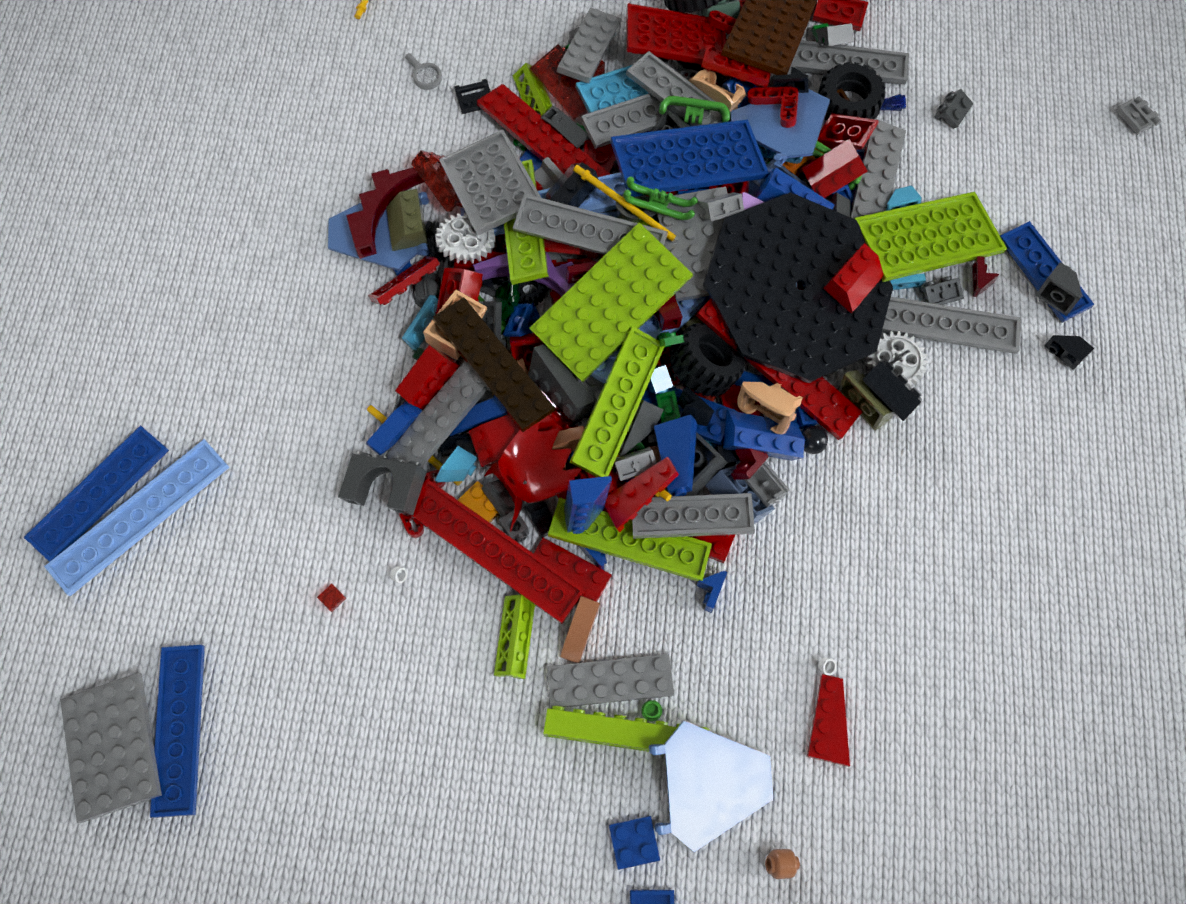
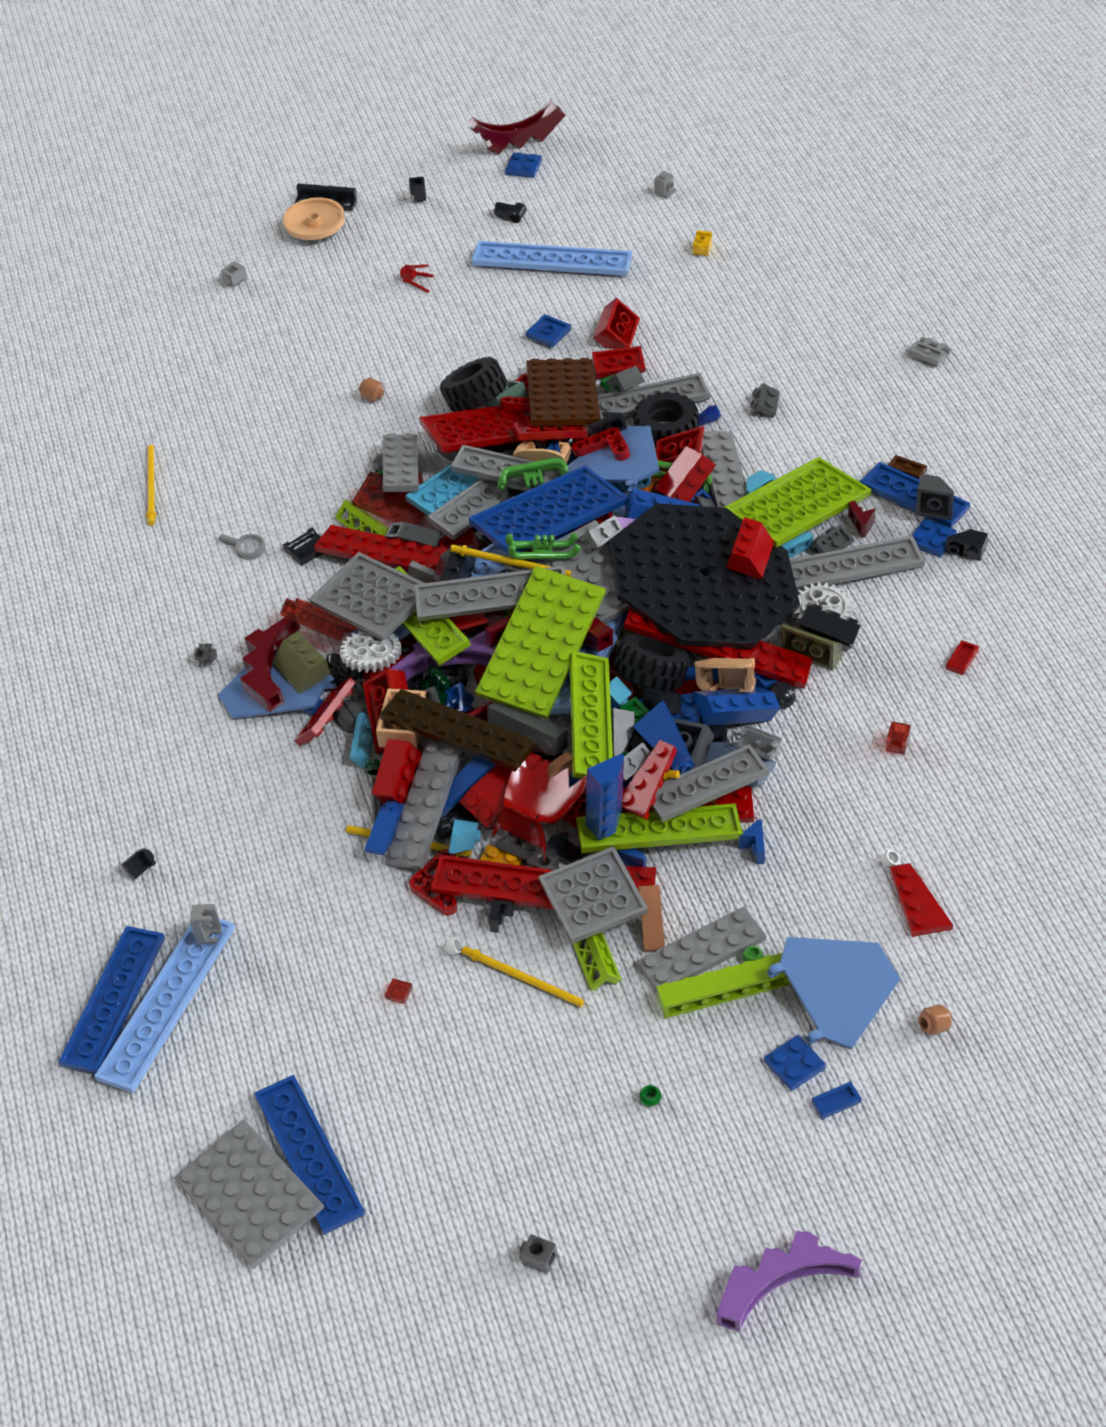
camera: 20 degrees left, 20 degrees down
(180, 365) = (138, 863): none -> black bracket
(192, 460) = (205, 922): none -> light grey hinge
(335, 174) = (205, 654): none -> flat silver gear
(365, 469) = (375, 871): dark grey arch -> none
(414, 592) = (476, 955): none -> yellow bar
(448, 561) = (498, 911): none -> black bracket
(483, 815) = (650, 1090): none -> green plate
(535, 587) = (593, 895): none -> light grey plate
(667, 339) = (611, 650): green plate -> none
(749, 463) = (733, 725): dark red slope -> none
(898, 536) = (898, 738): none -> clear red brick
(1002, 471) = (962, 657): none -> red tile
(1040, 325) = (932, 537): none -> blue plate
(1054, 238) = (908, 466): none -> reddish brown plate

